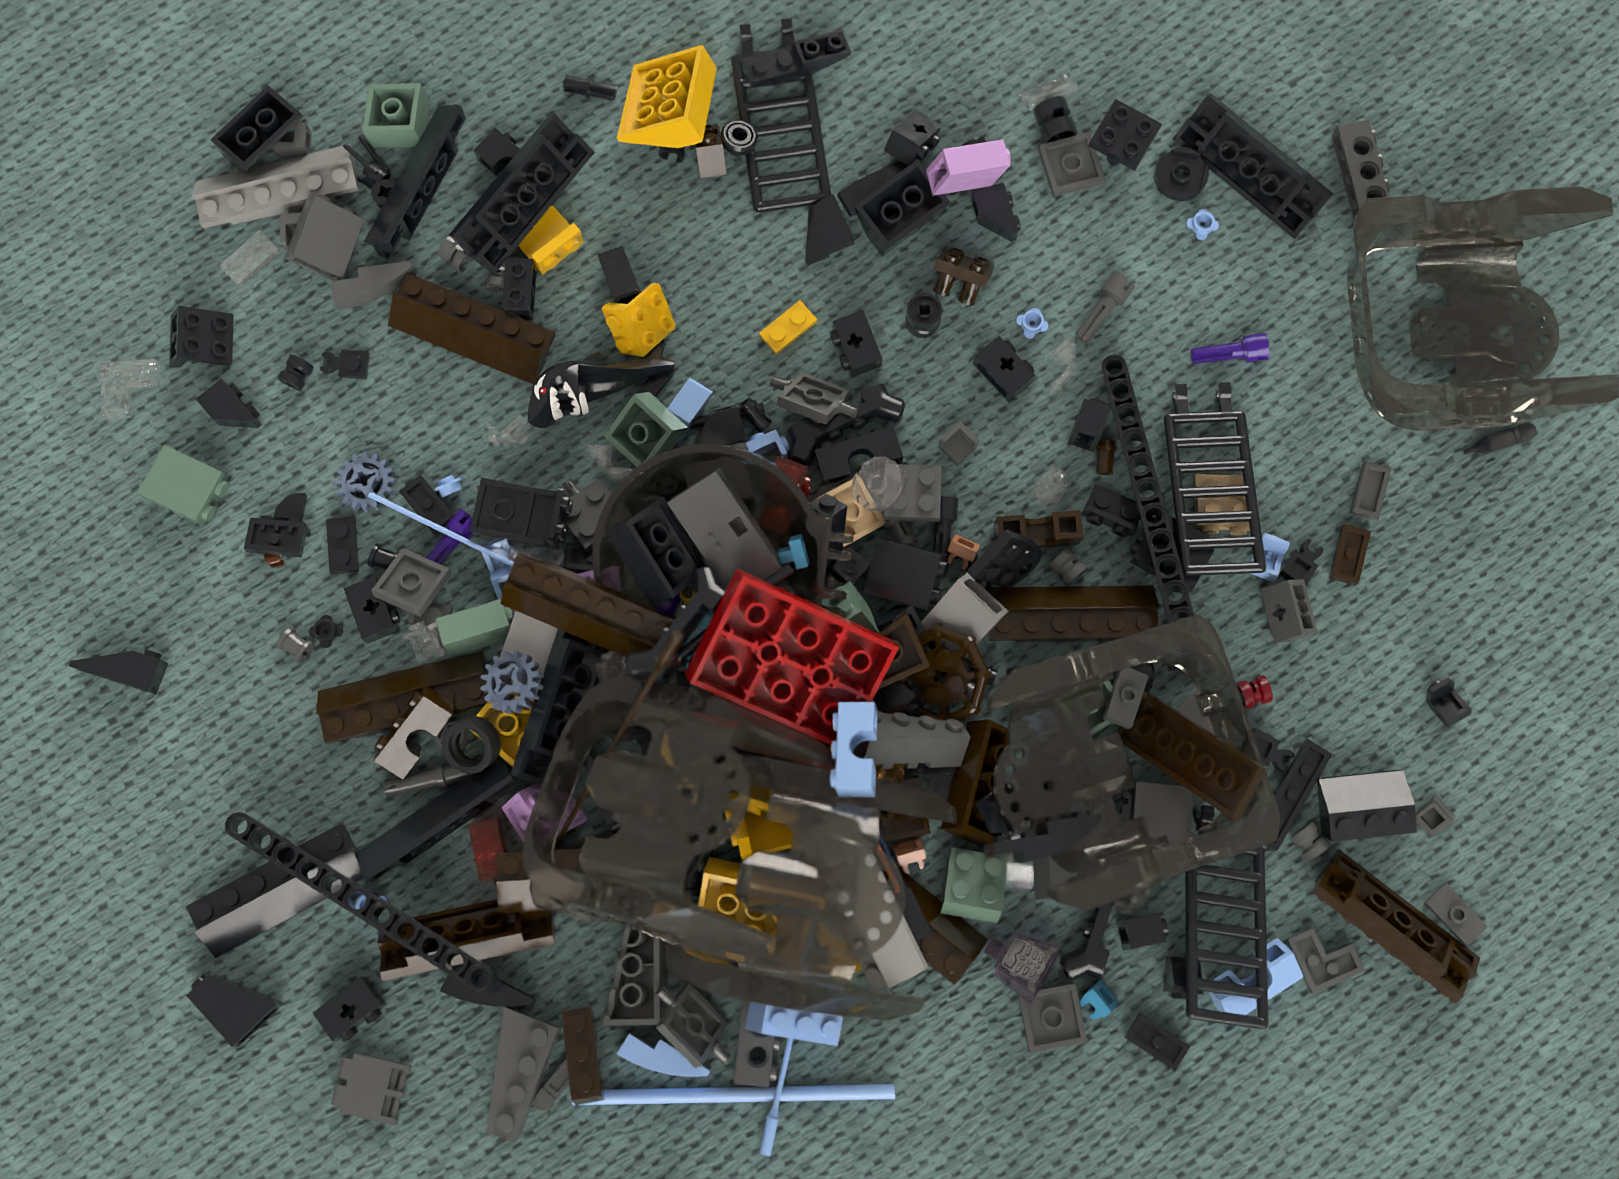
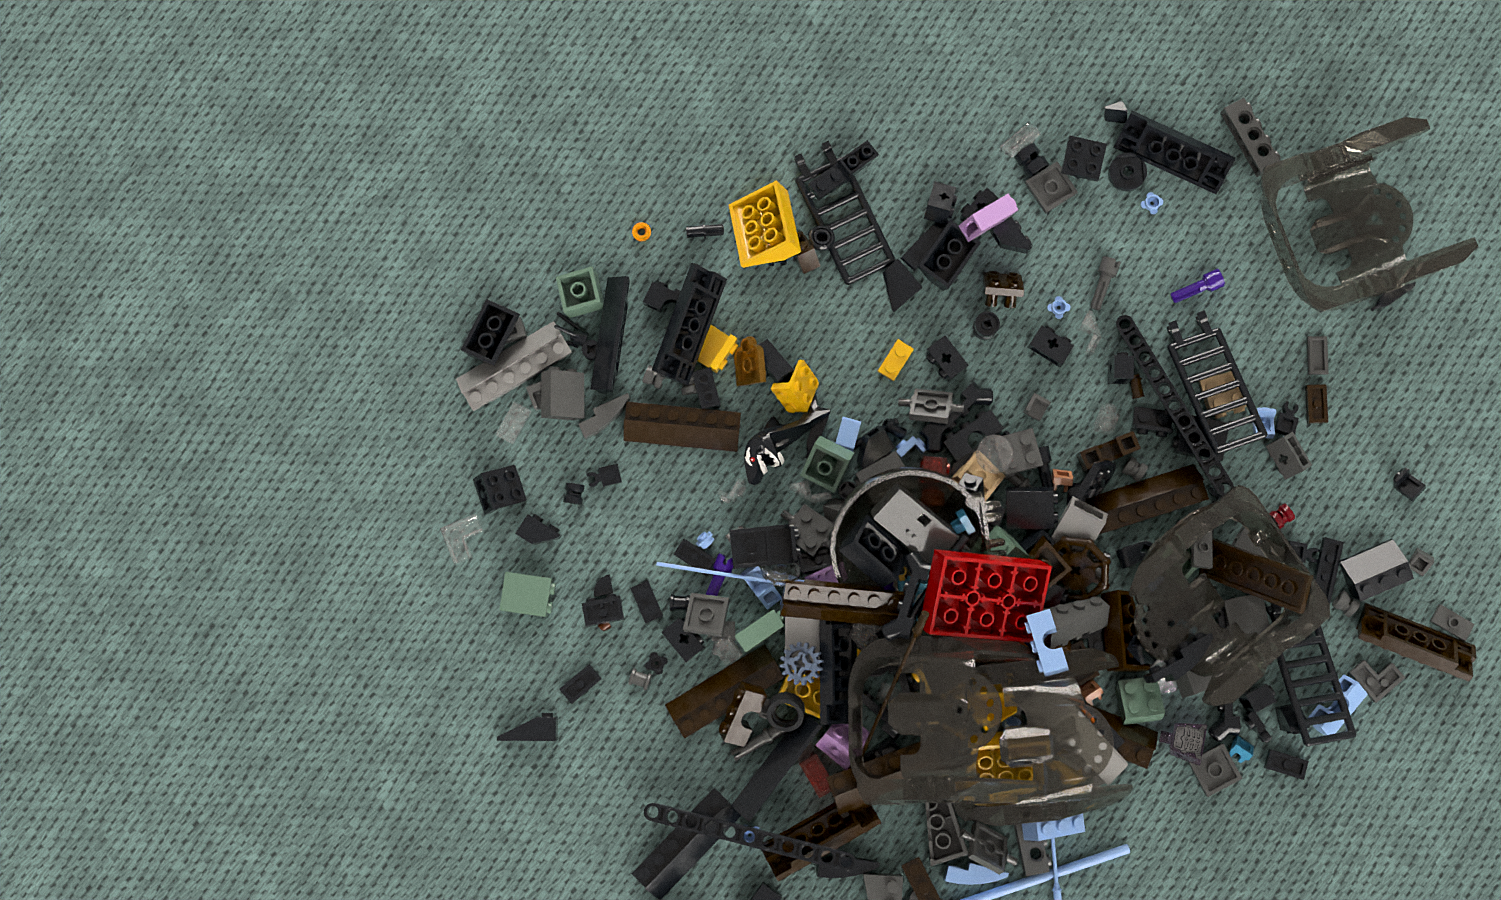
camera: 15 degrees left, 5 degrees up
(213, 627) = (580, 684): none -> black plate
(355, 485) = (655, 548): sand blue gear -> none
(502, 59) = (637, 227): none -> light orange plate
(587, 270) = (749, 363): none -> pearl gold plate
(1128, 967) = (1253, 722): none -> black plate
(1188, 92) = (1116, 113): none -> black slope

